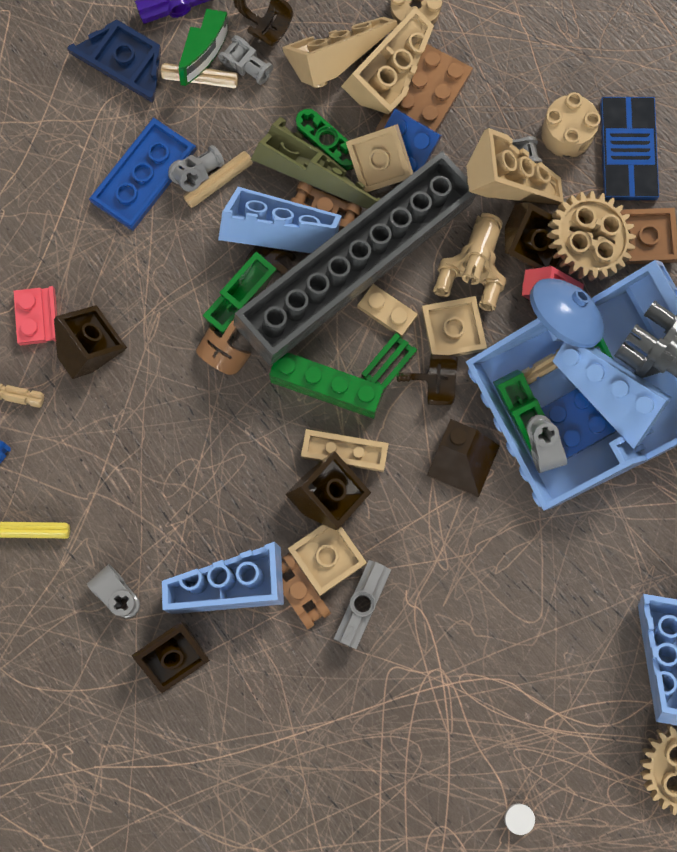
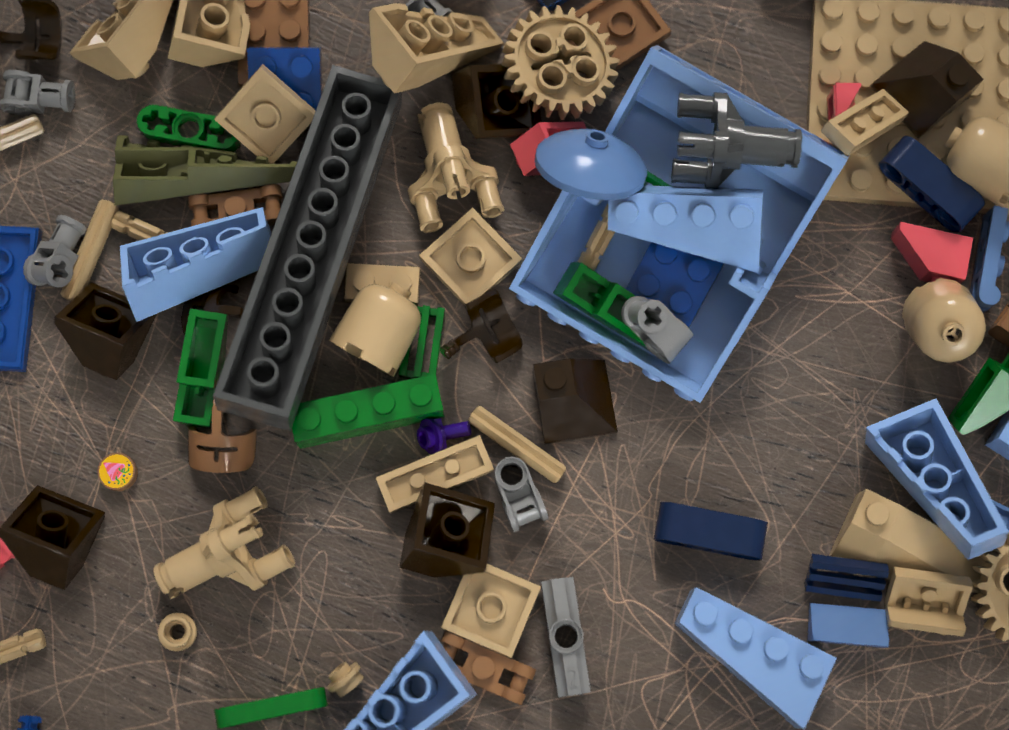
camera: 35 degrees left, 0 degrees up
(122, 440) = (166, 627): none -> tan plate
(149, 327) = (117, 472): none -> tile
(152, 531) = (270, 707): none -> green beam
(183, 416) = (224, 550): none -> tan wheel
(195, 233) = (102, 330): none -> dark brown slope
(208, 542) = (344, 678): none -> tan plate
(254, 180) = (134, 227): none -> tan axle
(359, 425) = (437, 434): none -> dark purple plate
(367, 335) = (379, 326): none -> tan cylinder
(389, 497) = (519, 496): none -> light grey piece
(409, 464) = (517, 444): none -> tan axle
(482, 701) = (768, 660): none -> light blue wedge
(498, 597) = (710, 531): none -> dark blue beam
(550, 714) = (848, 625): none -> medium blue slope
(566, 685) = (844, 582): none -> dark blue tile
(612, 732) = (927, 601): none -> tan bracket
(617, 685) = (898, 537): none -> tan wedge

